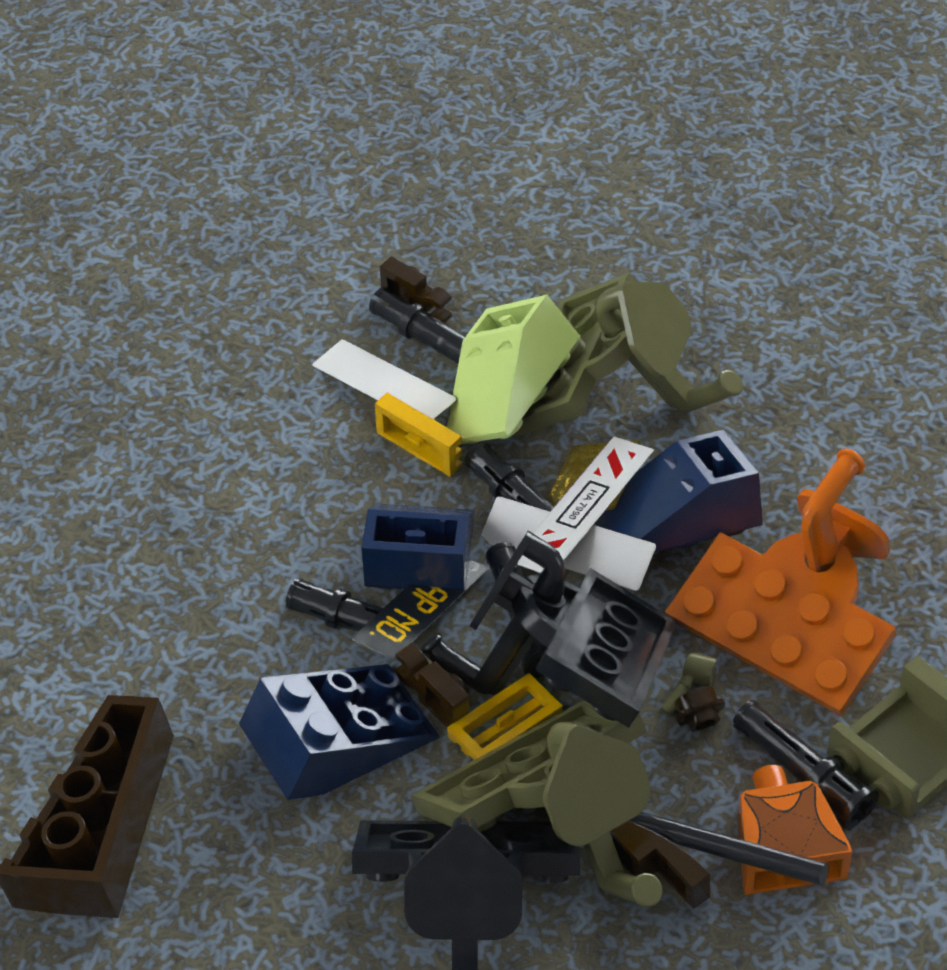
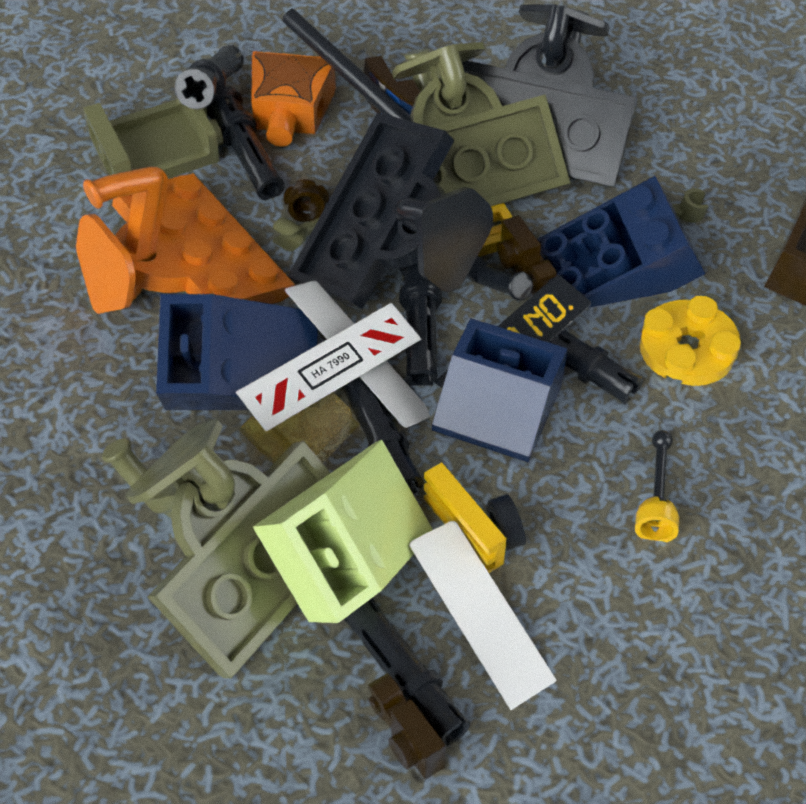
camera: 165 degrees left, 5 degrees up
(249, 632) = (698, 318): none -> yellow plate
(252, 482) = (656, 507): none -> yellow hinge
(277, 817) = (690, 206): none -> olive hand
(381, 442) = (506, 518): none -> black tile
(878, 780) = (207, 77): none -> black pin

